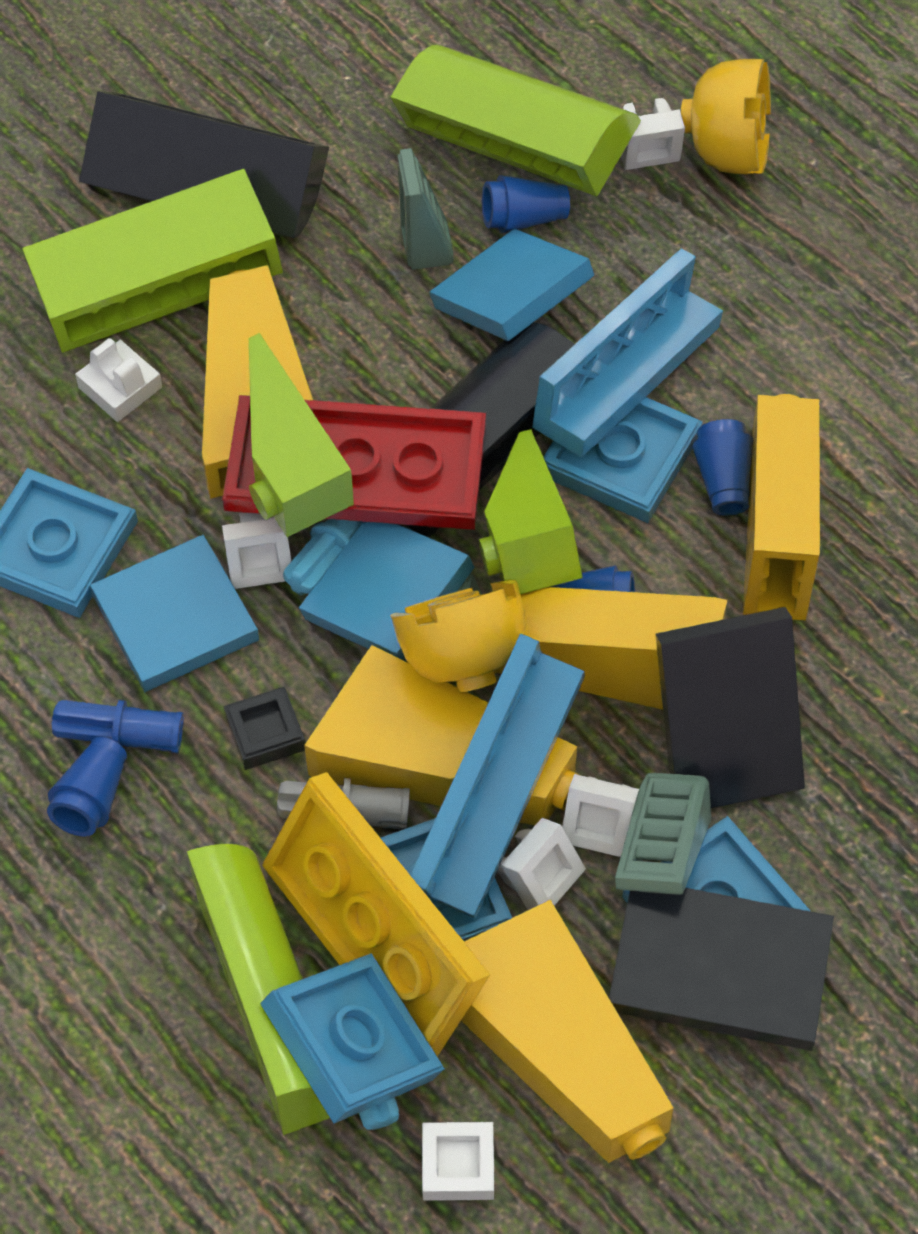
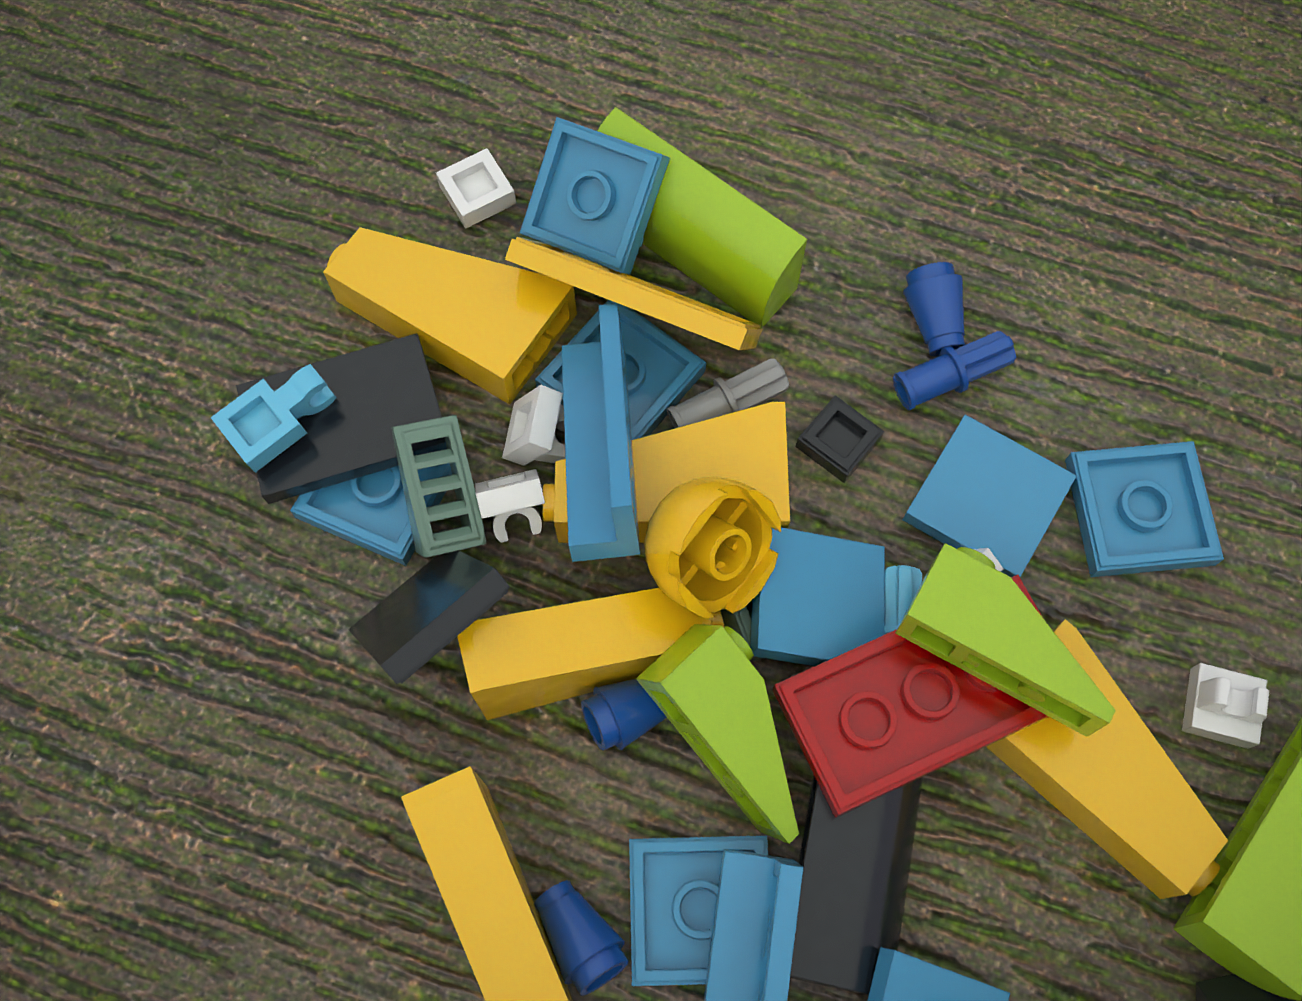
camera: 150 degrees right, 10 degrees up
(799, 960) = (265, 421): none -> medium azure plate

